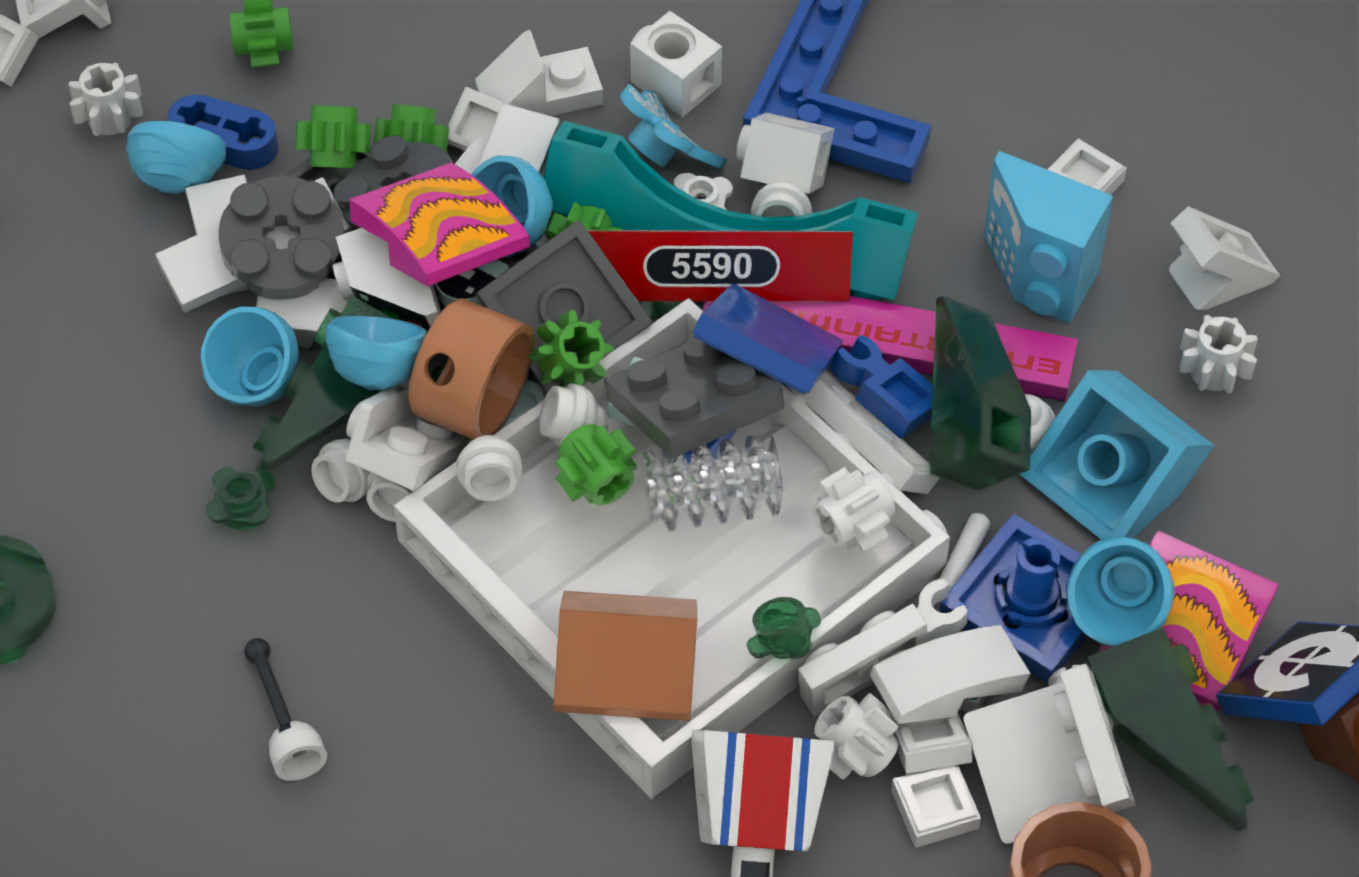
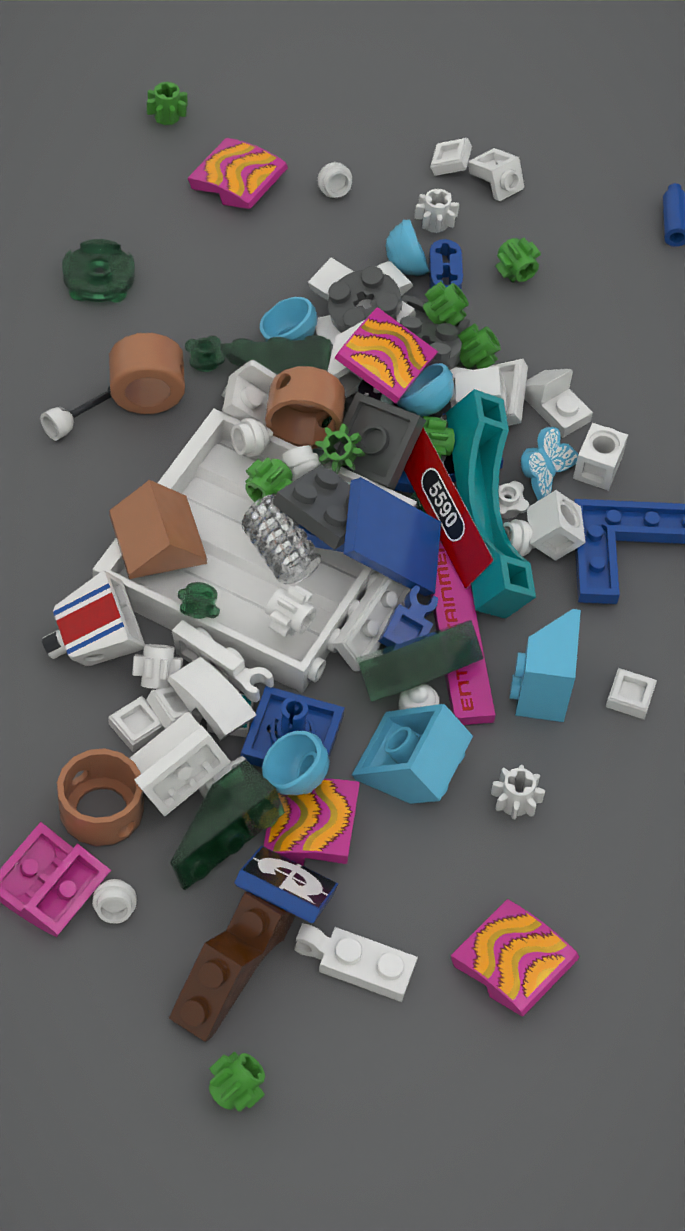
camera: 65 degrees right, 0 degrees up
(278, 578) = (146, 373): none -> nougat piece
(373, 349) = (291, 349): medium azure piece -> none
(965, 548) = (335, 698): white piece -> none
(1217, 260) = (595, 775): white slope -> none

